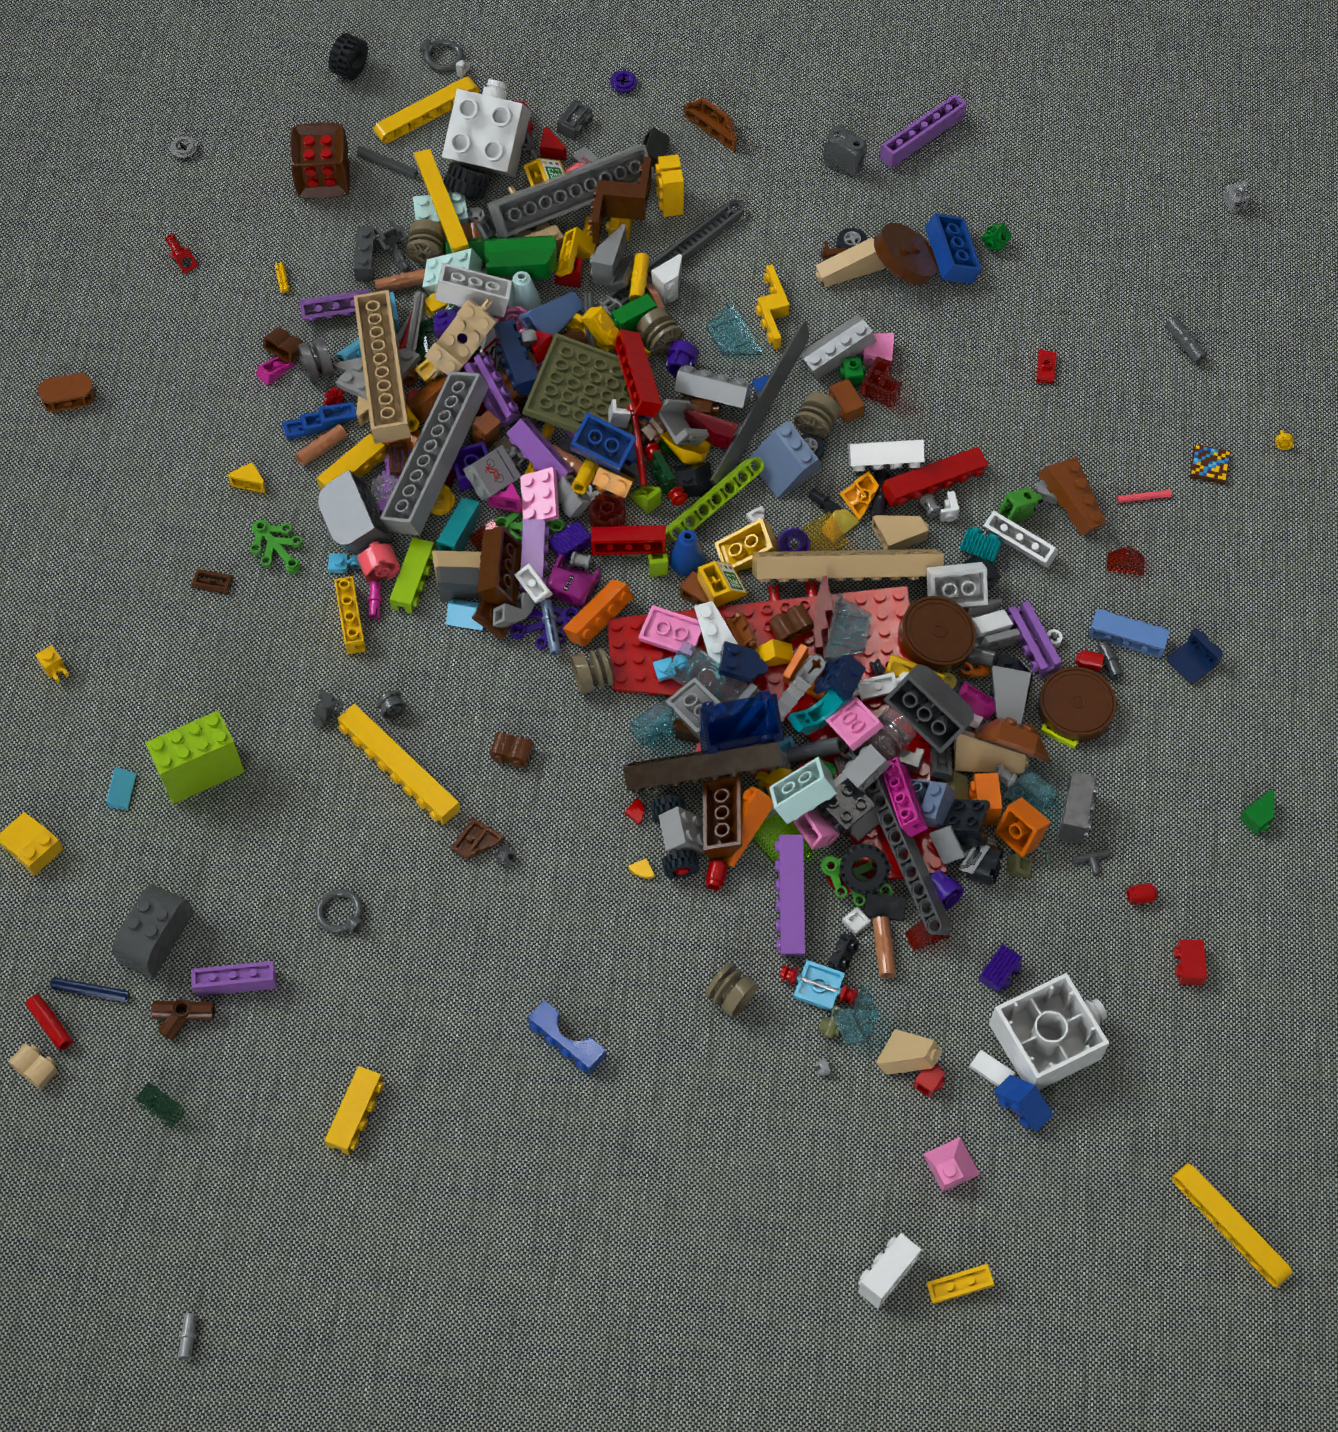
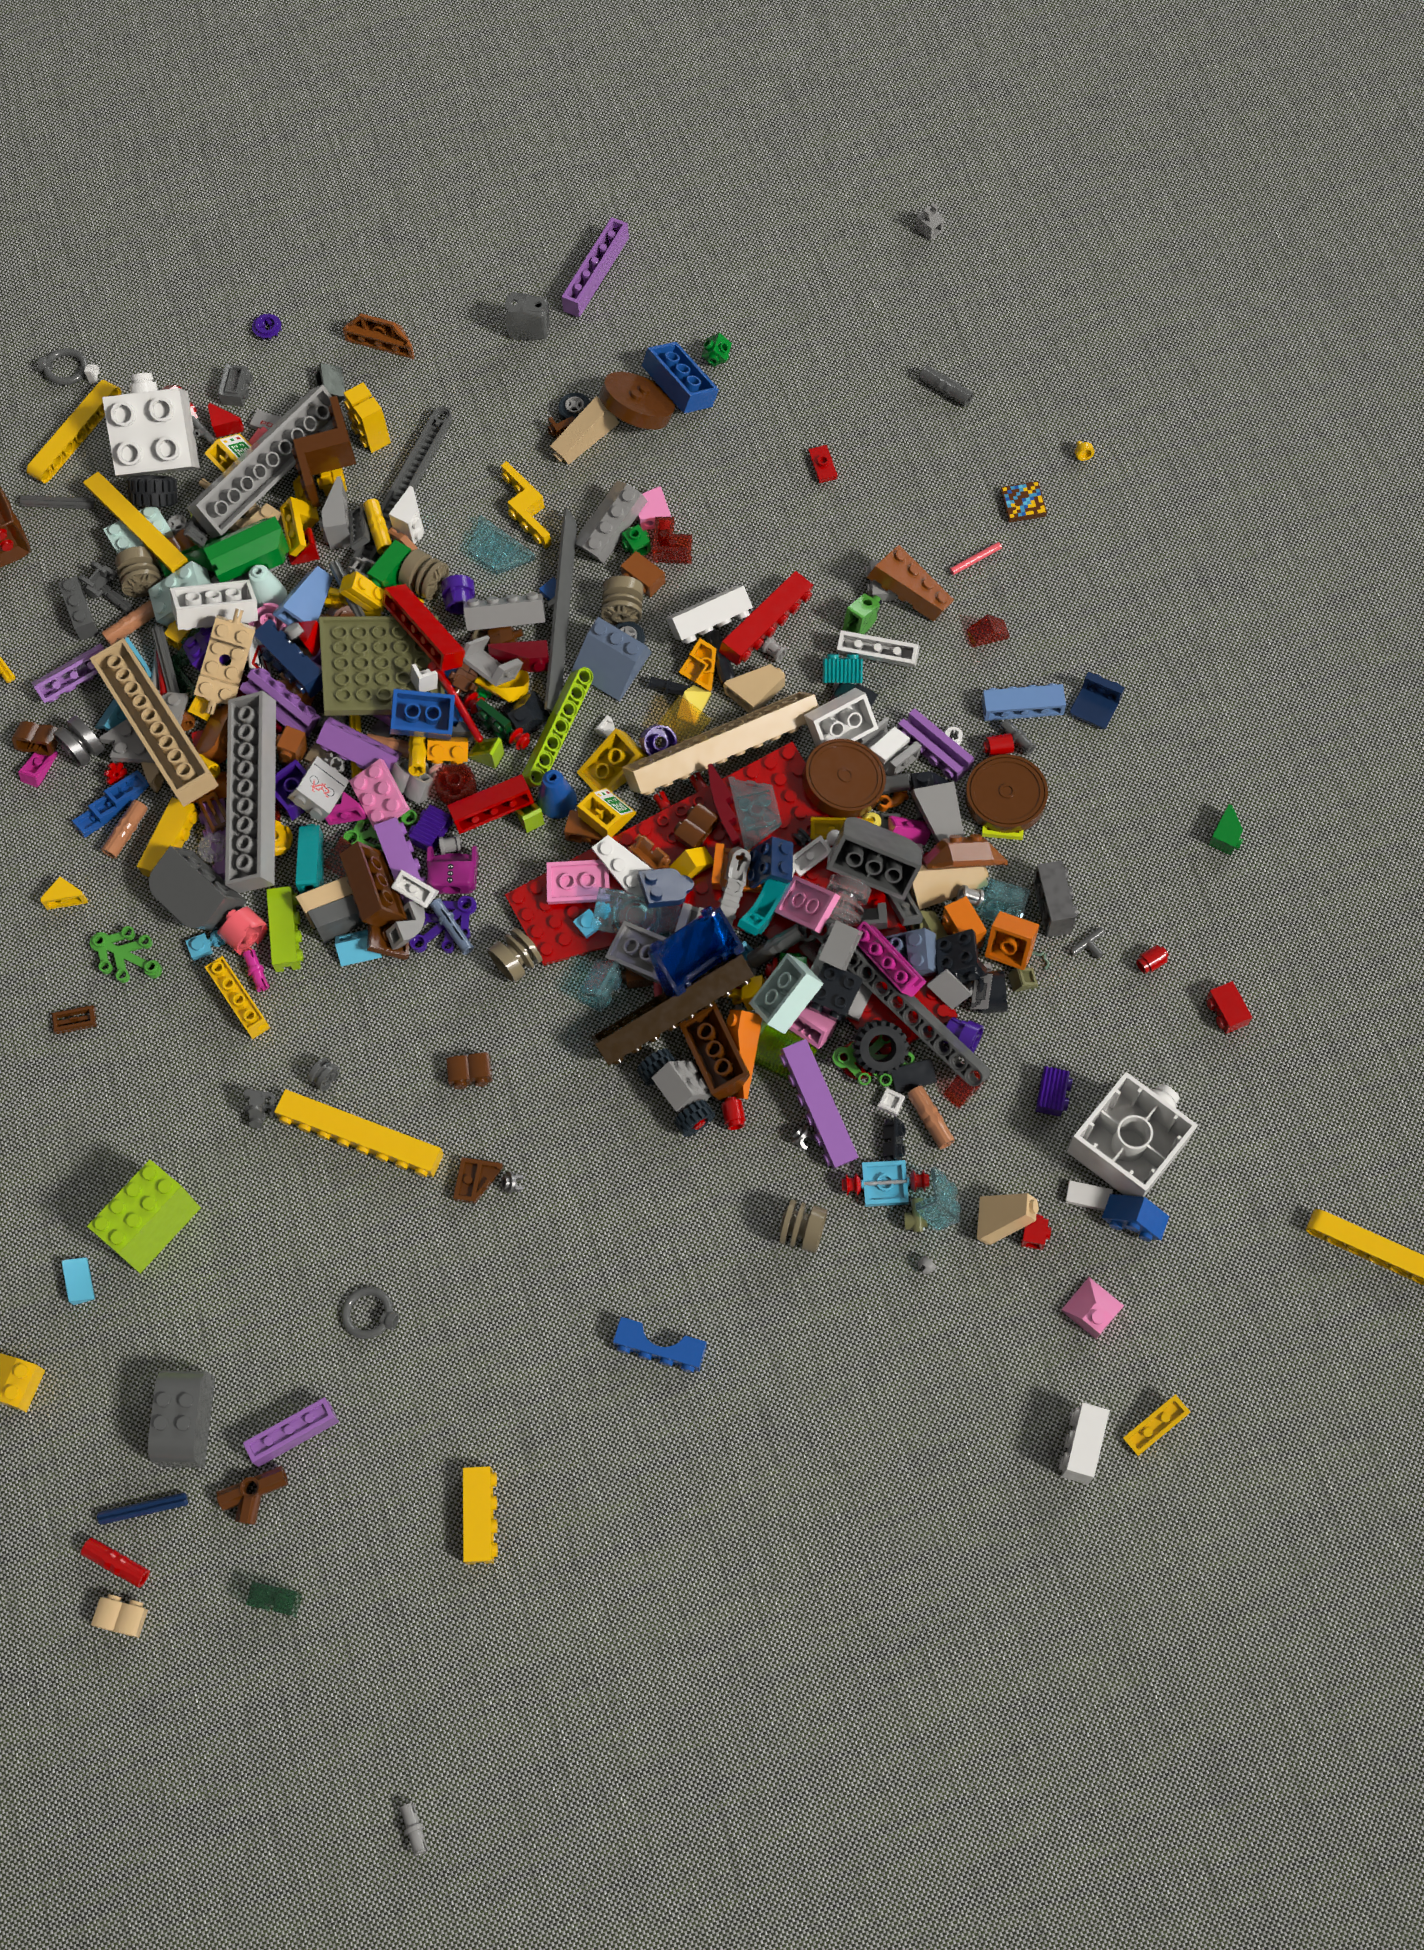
camera: 20 degrees left, 5 degrees up
(598, 612) = (493, 891): orange brick -> none
(635, 812) = (623, 1082): red tile -> none
(642, 869) = (656, 1138): yellow tile -> none
(764, 915) = (799, 1135): none -> flat silver plate
(951, 509) = (796, 644): white bracket -> none

